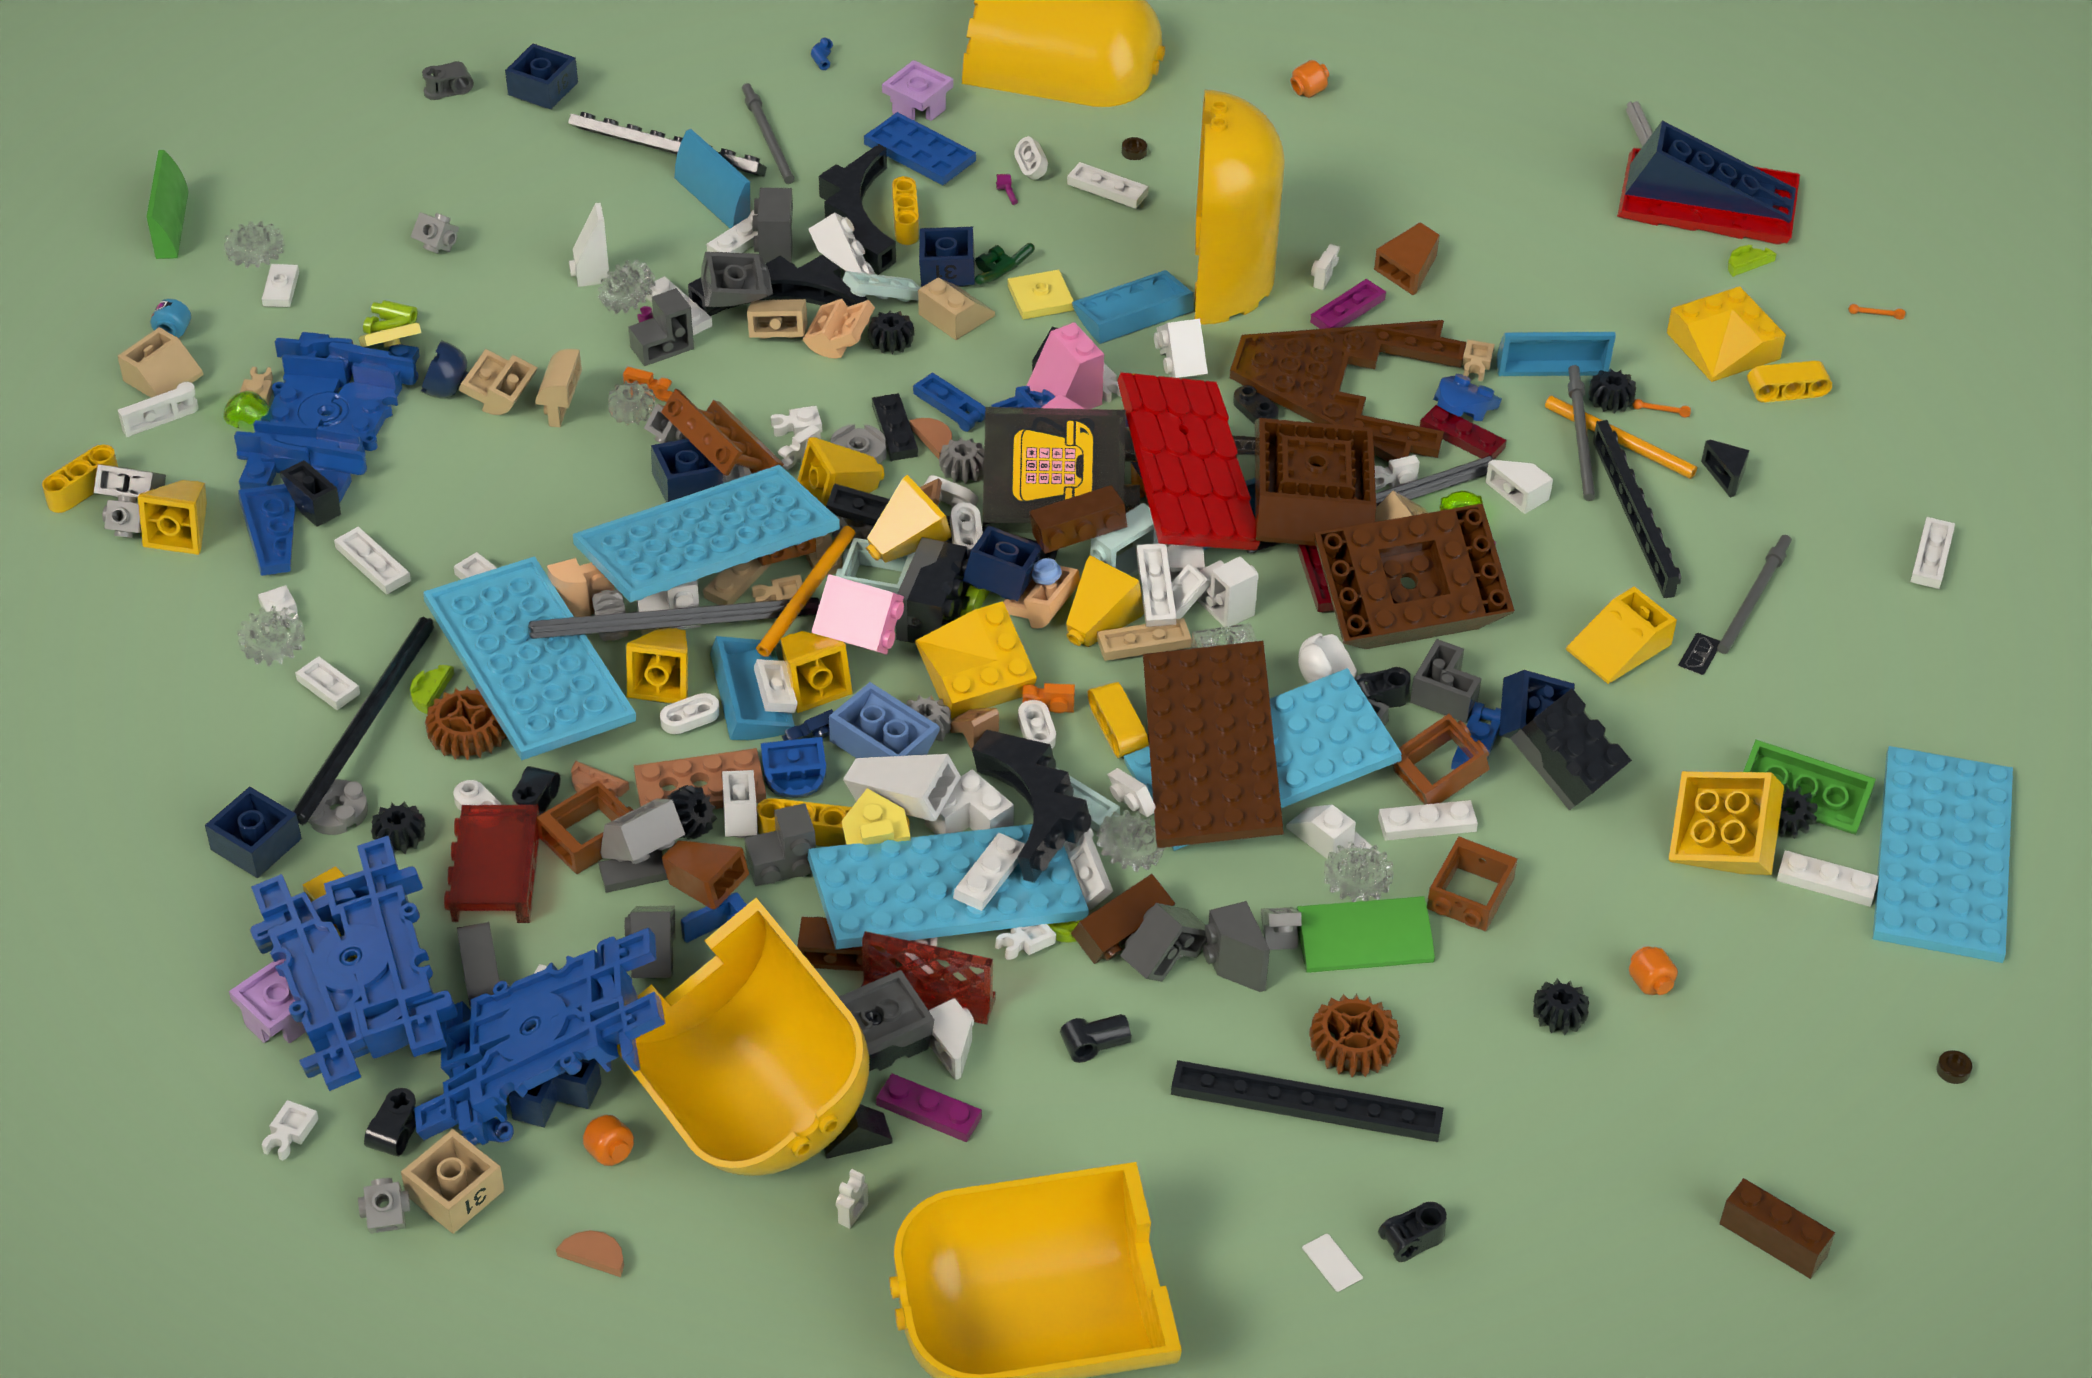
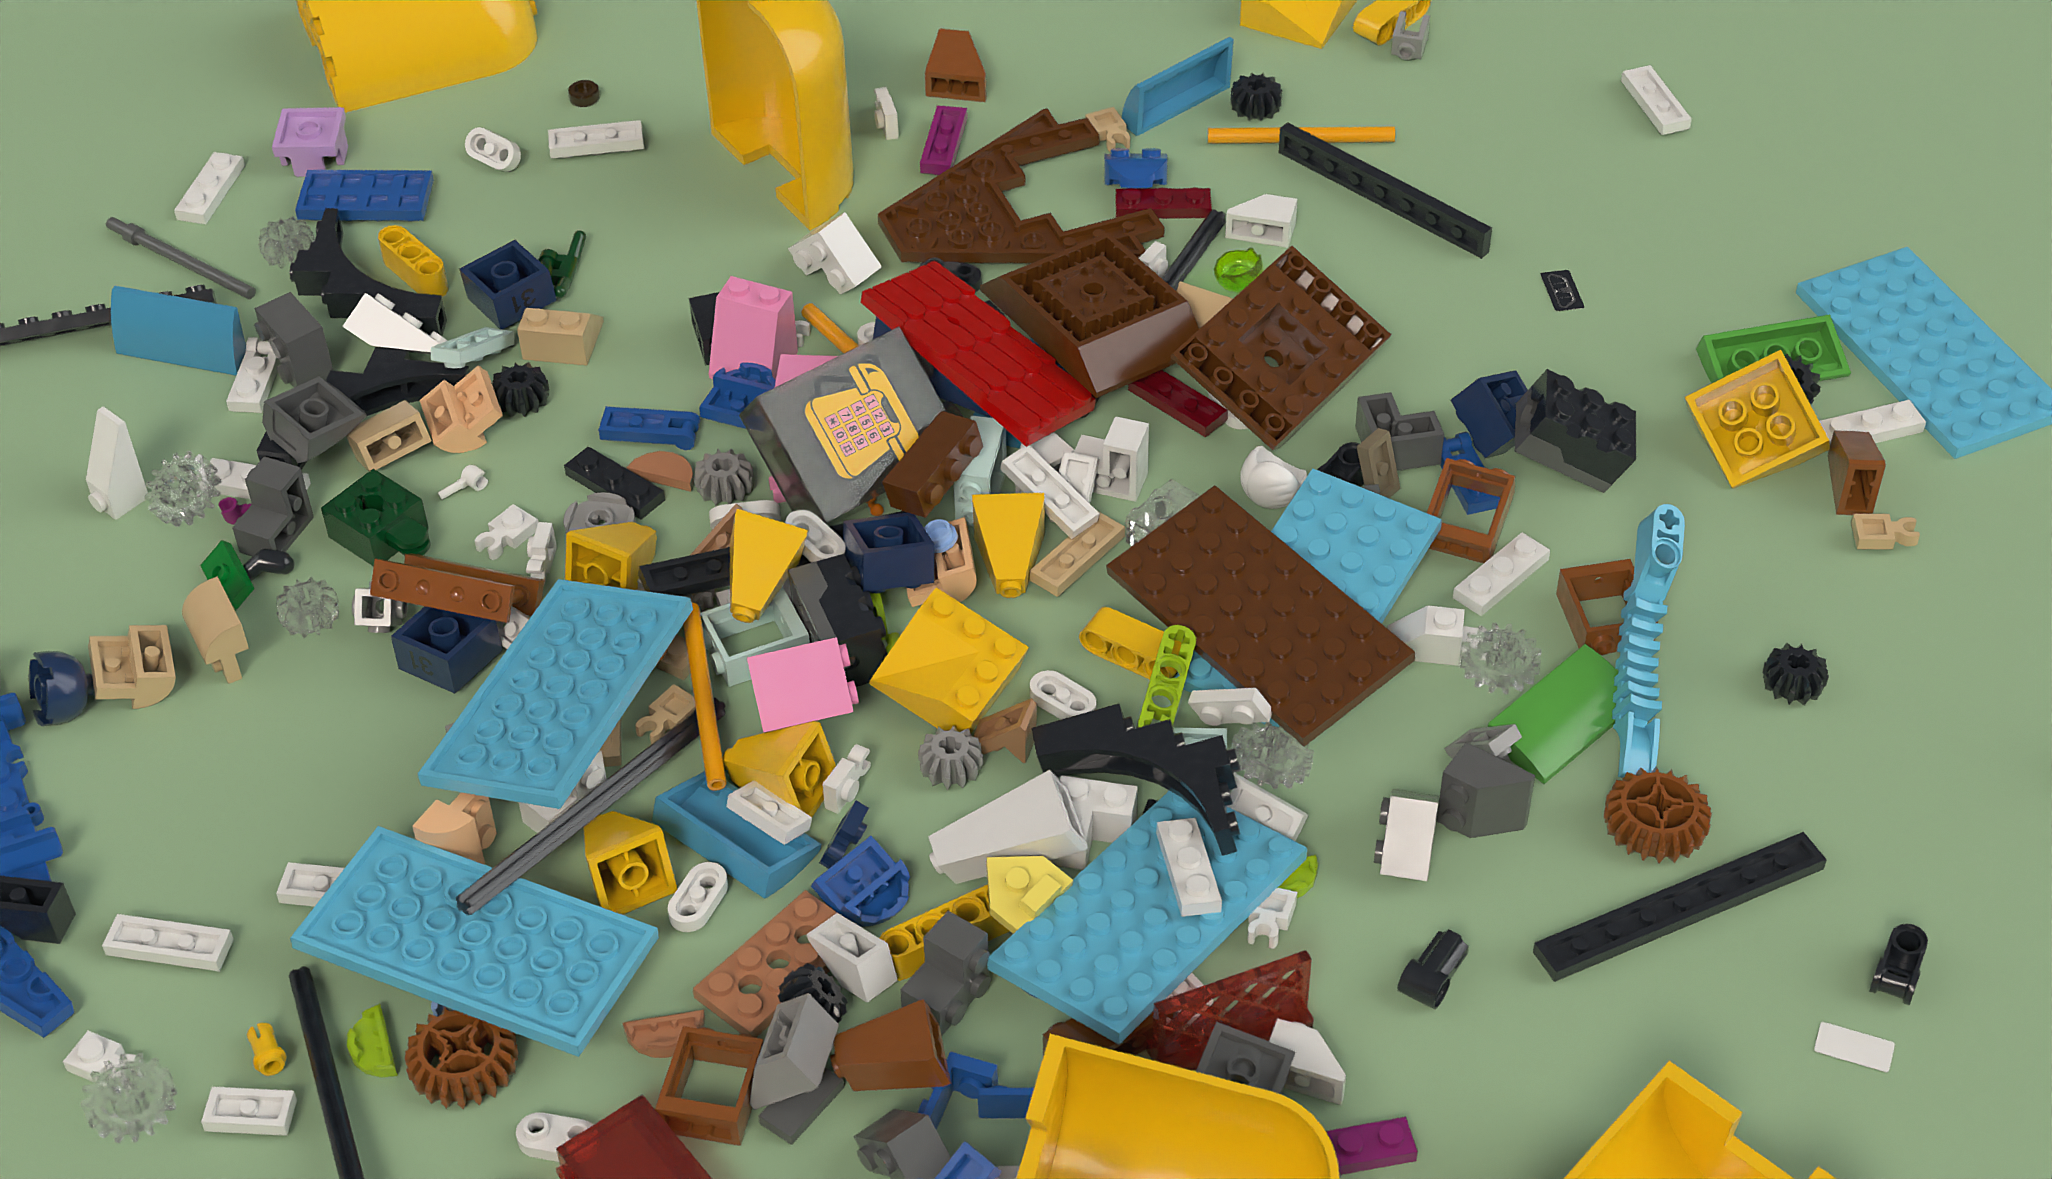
camera: 35 degrees left, 0 degrees up
(366, 658) = (268, 1057): none -> yellow pin
(537, 788) = (612, 1079): black piece -> none
(603, 357) = (226, 565): none -> green plate
(609, 603) = (507, 833): light grey gear -> none
(633, 359) = (269, 561): none -> black arm
(658, 386) = (325, 571): orange plate -> none
(725, 375) = (377, 519): none -> dark green brick
(808, 374) = (470, 476): none -> white hand
(820, 53) = (159, 151): blue arm -> none
(829, 94) = (209, 188): none -> white plate
(837, 151) = (283, 240): none -> clear gear
(840, 692) = (842, 781): none -> white plate
(880, 726) = (924, 790): medium blue slope -> none
(1004, 183) = (488, 186): magenta hand -> none
(1040, 294) = (632, 276): light yellow plate -> none
(1057, 697) = (1056, 656): orange plate -> none
(1103, 757) = (1162, 685): none -> lime beam
(1117, 920) = (1345, 837): reddish brown brick -> none
(1134, 306) = (738, 239): dark azure slope -> none
(1404, 696) = (1379, 463): none -> dark tan plate
(1455, 916) = (1658, 537): none -> medium azure piece
(1576, 392) = (1232, 112): dark grey bar -> none
(1623, 635) = (1496, 307): yellow slope -> none
(1653, 970) = (1834, 593): orange head -> none
(1684, 411) = (1329, 85): orange hinge -> none
(1725, 464) = (1418, 112): black slope -> none
(1743, 950) = (1879, 532): none -> tan plate
(1766, 898) = (1855, 471): none -> dark orange slope
(1773, 560) = (1538, 173): dark grey bar -> none
(1778, 408) = (1409, 43): none -> light grey window

